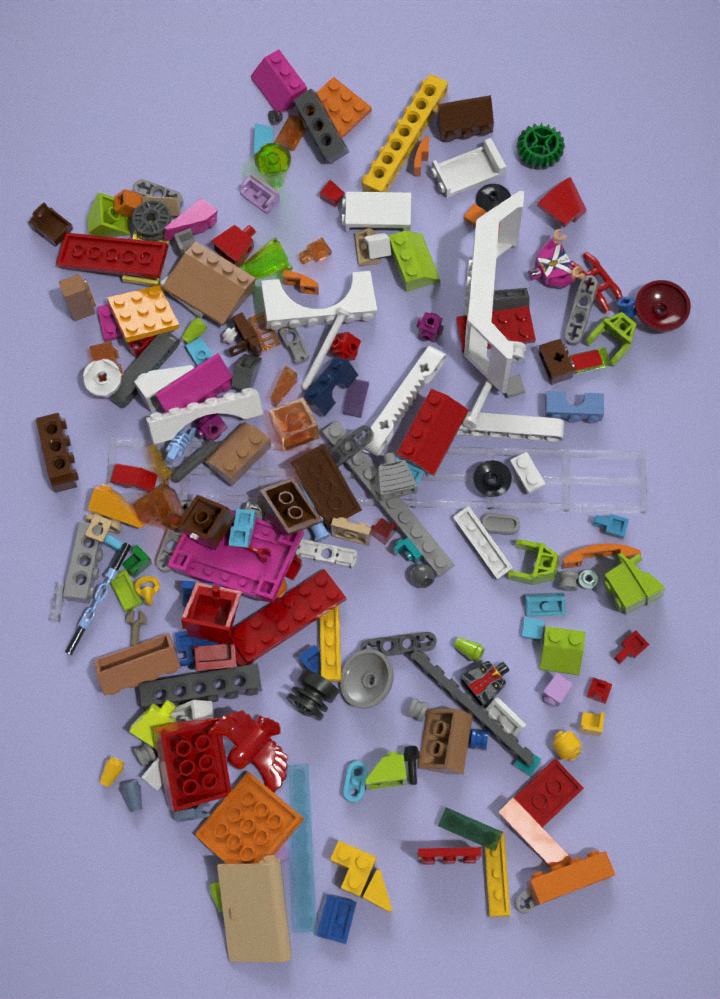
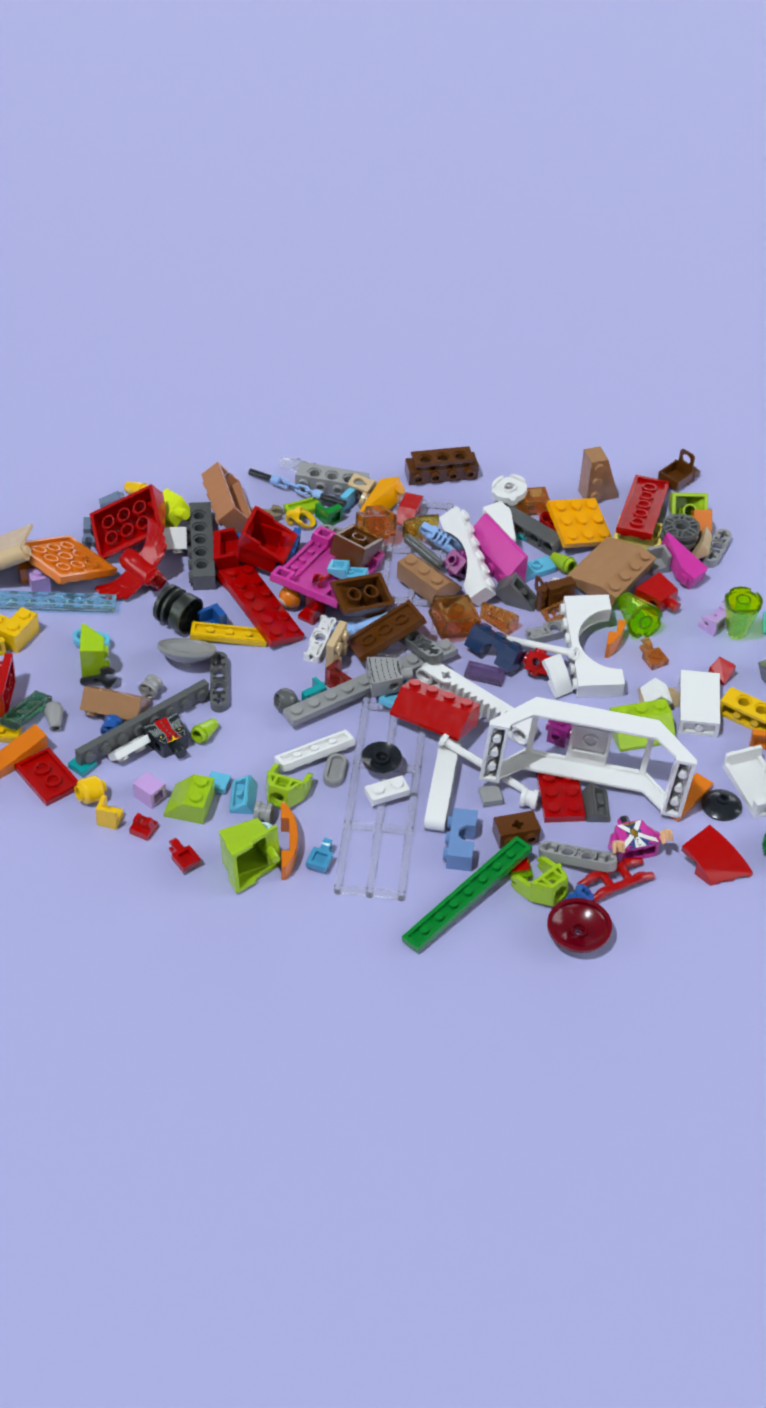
camera: 90 degrees right, 25 degrees down
(362, 329) = (558, 675): none -> white slope
(469, 800) = (54, 715): none -> light grey cone
(638, 397) = (466, 894): none -> green plate

